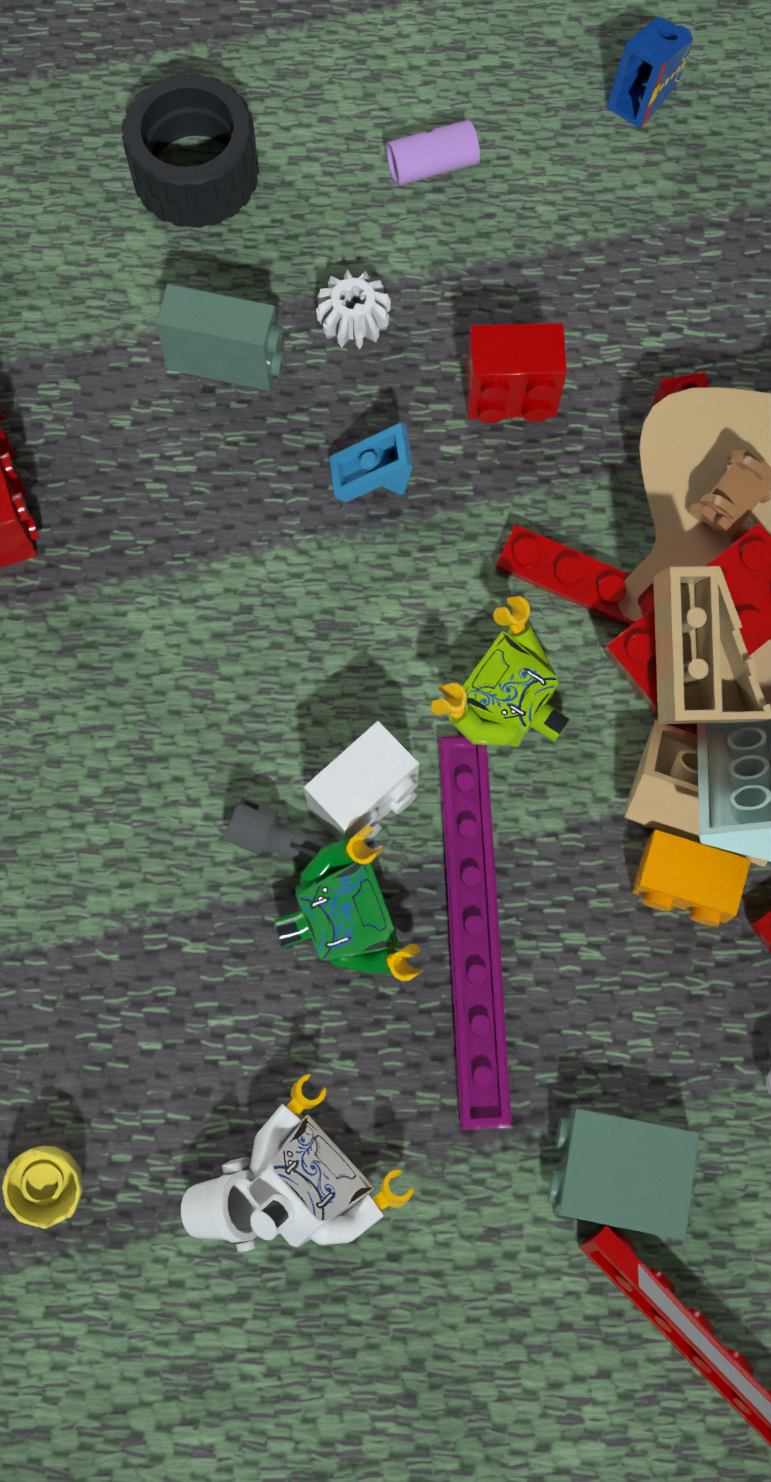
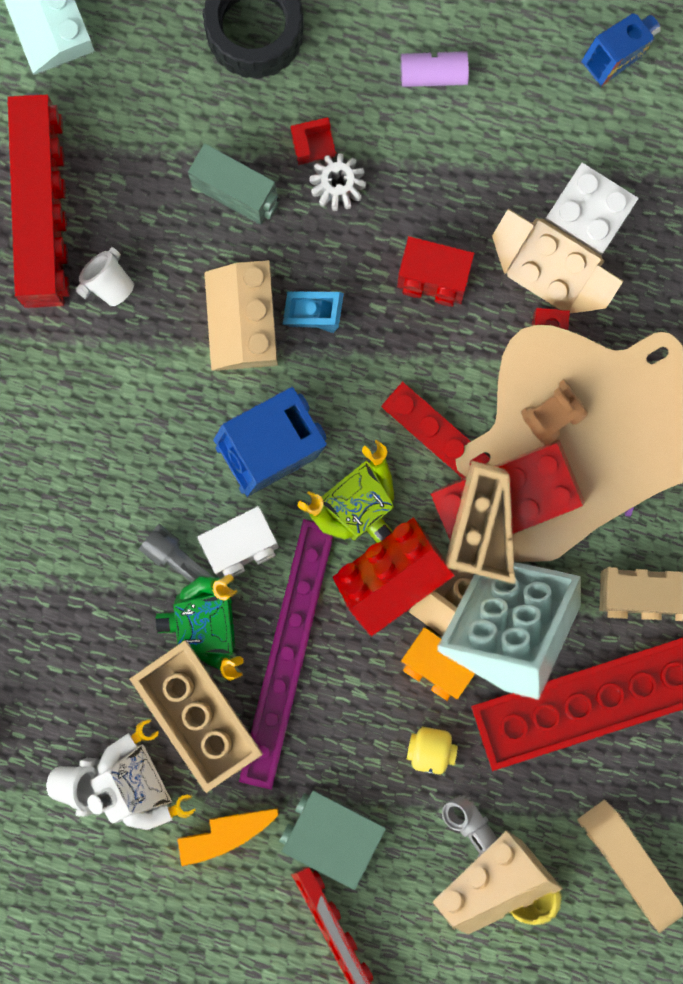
camera: 20 degrees right, 10 degrees up
(82, 499) = (105, 278): none -> white piece
(278, 500) = (241, 316): none -> tan slope
(303, 269) = (312, 141): none -> red panel
(364, 639) = (270, 441): none -> blue container
(375, 1048) = (196, 716): none -> tan slope
(469, 1215) = (225, 835): none -> light orange slope
(592, 769) = (392, 576): none -> red brick
(664, 328) = (553, 264): none -> piece
(684, 260) = (592, 208): none -> white brick
(721, 1001) = (431, 750): none -> light yellow head

